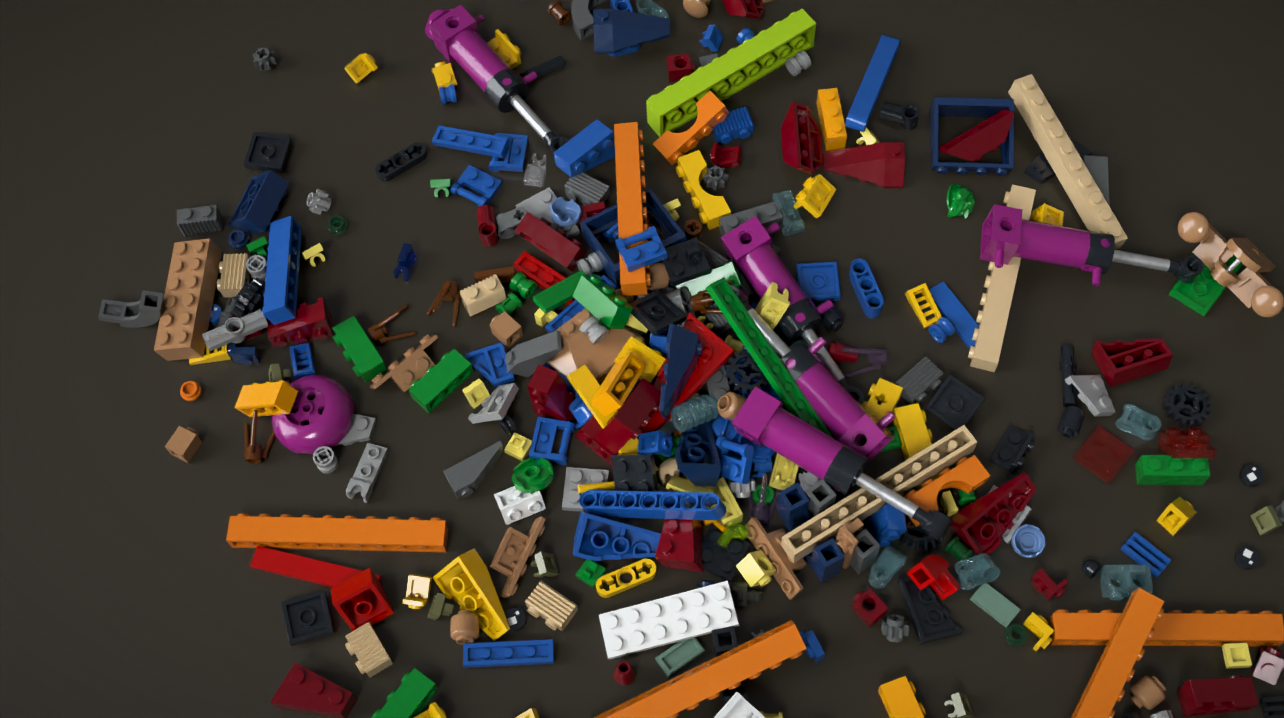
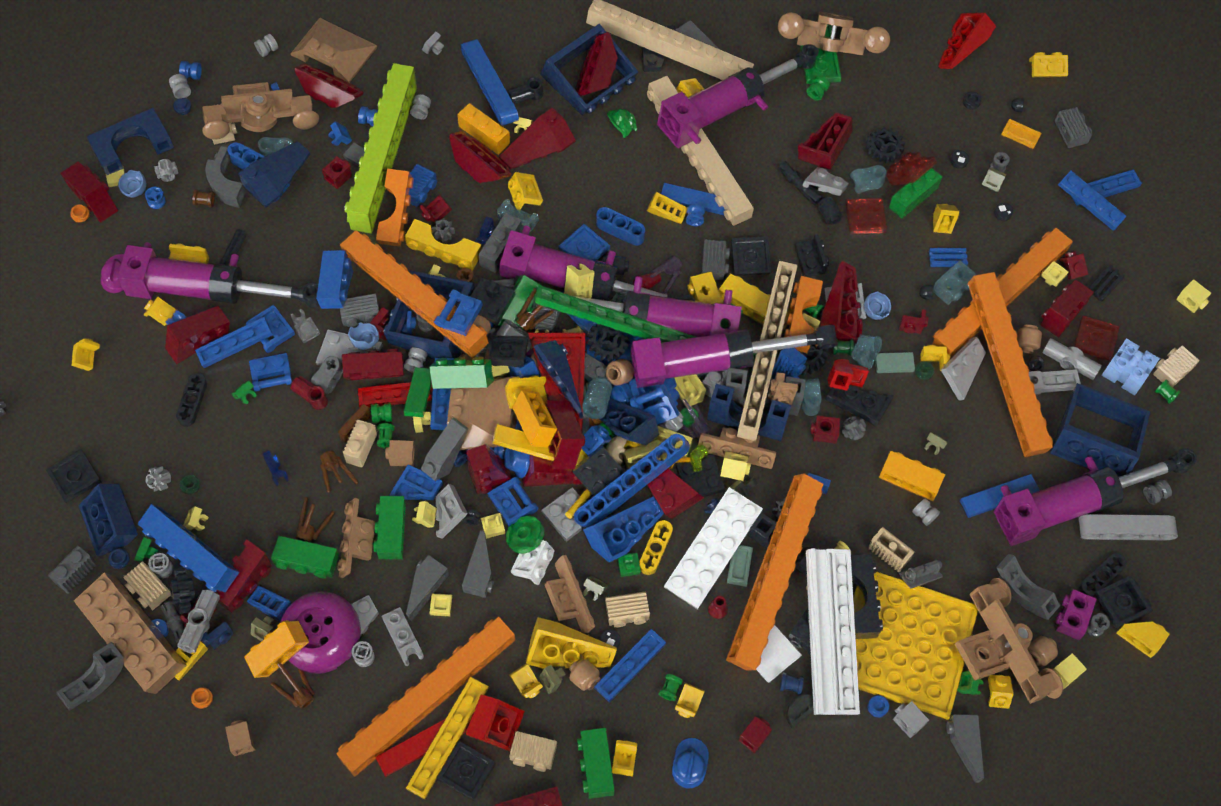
camera: 50 degrees left, 0 degrees up
(317, 579) = (446, 738): none -> yellow tile
(419, 474) = (441, 605): none -> light yellow tile
(422, 446) = (427, 580): none -> dark grey slope
(451, 111) = (194, 332): none -> dark red wedge
(521, 701) = (670, 687): none -> green bush
(594, 329) = (478, 396): light grey wheel -> none
(747, 203) = (486, 231): none -> clear blue plate
(860, 17) = (433, 44): none -> light grey tile
(1054, 663) = (963, 367): none -> light grey wing
(1173, 305) = (818, 87): none -> green wheel

